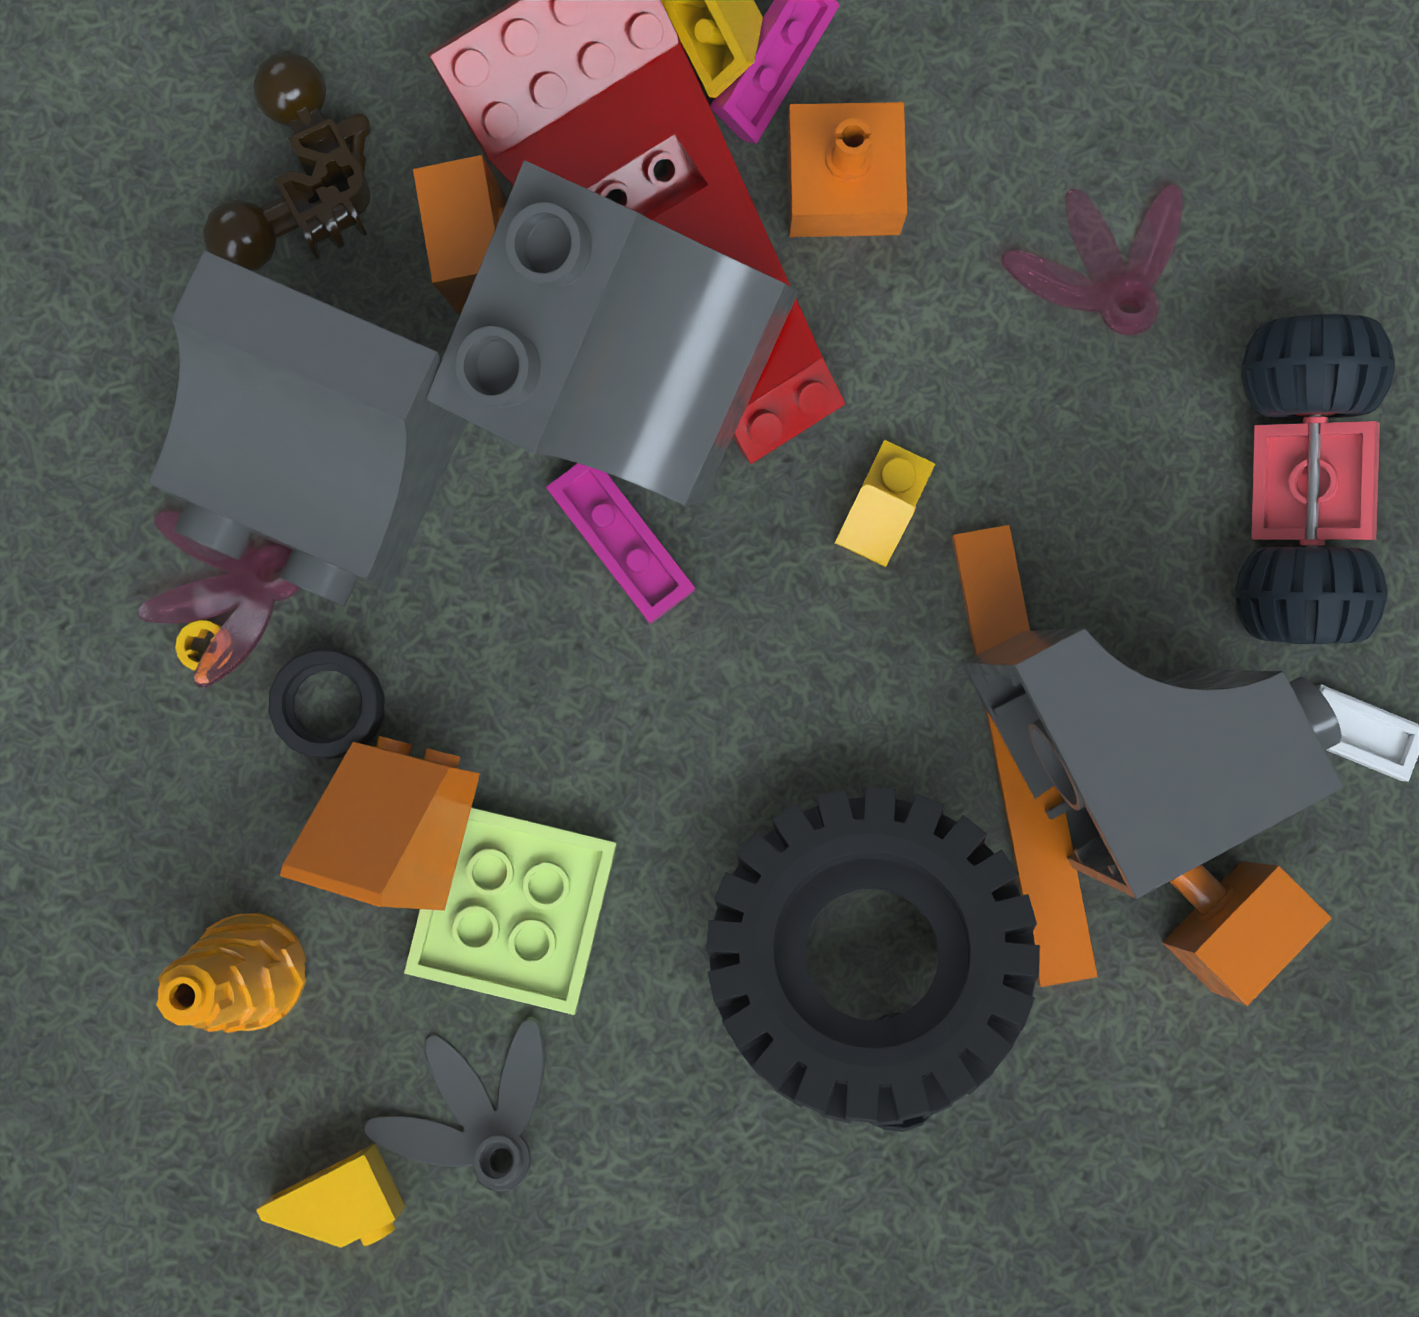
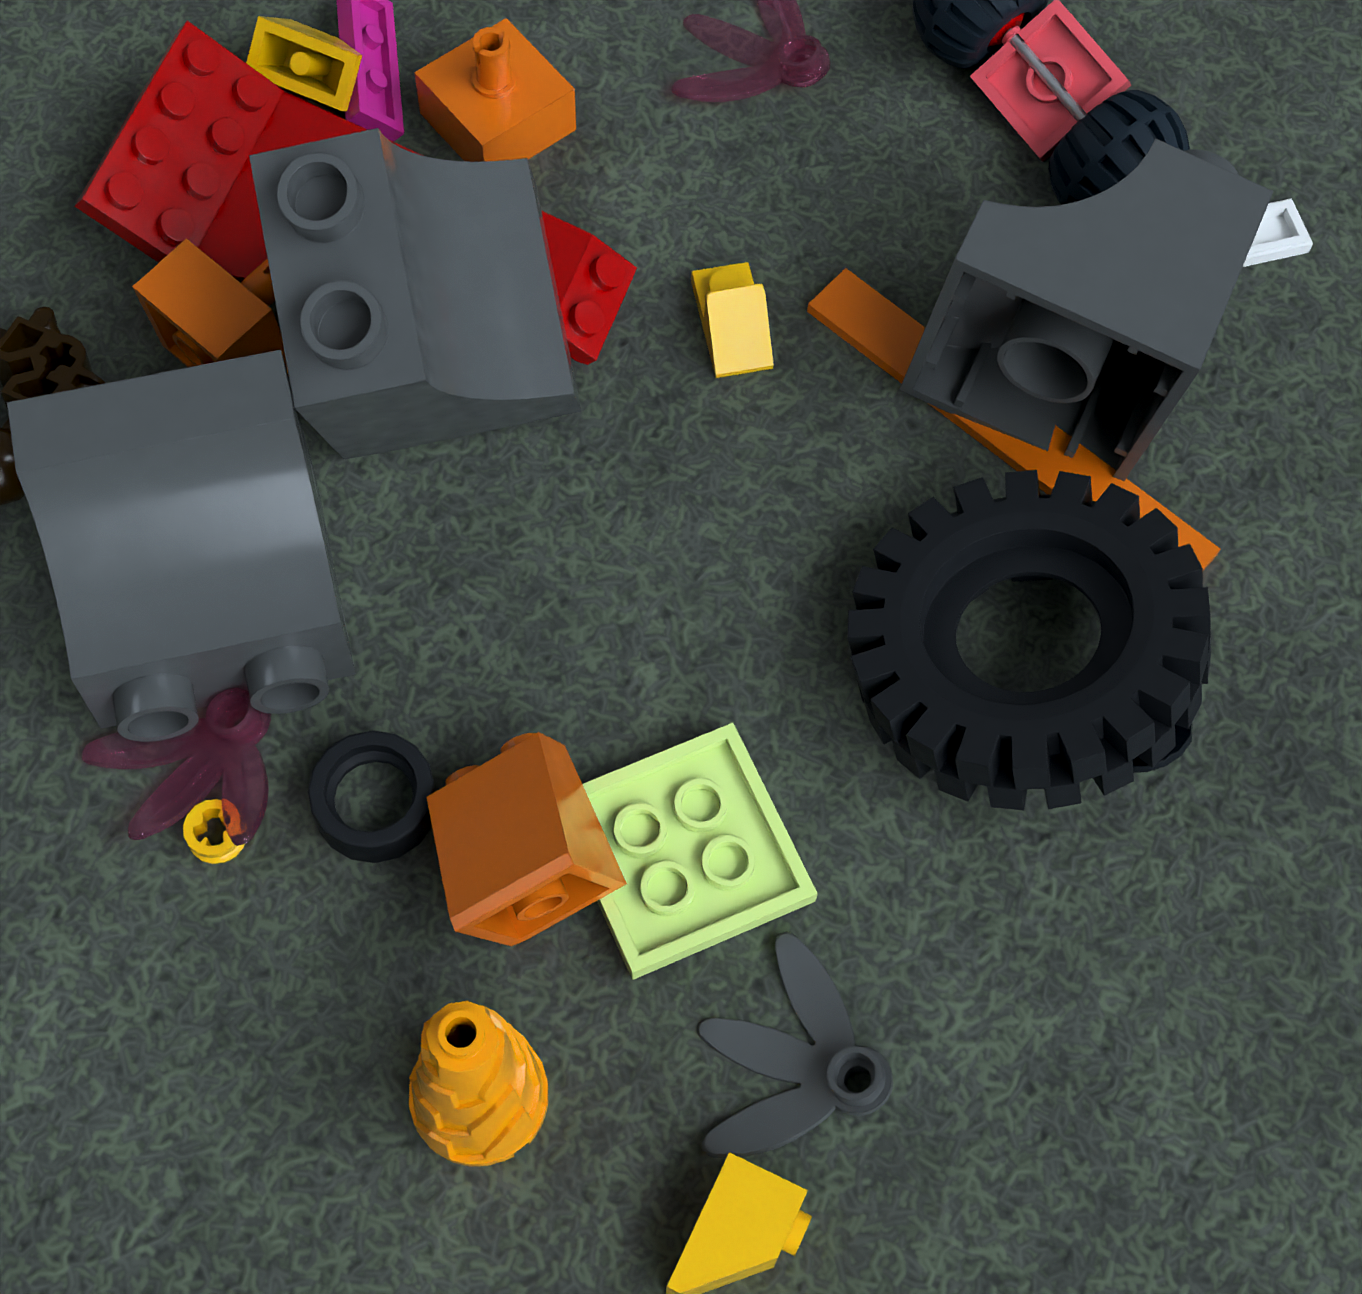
camera: 40 degrees left, 20 degrees down
(621, 540) = (533, 486): dark pink plate -> none
(1243, 927) = (1293, 414): orange brick -> none

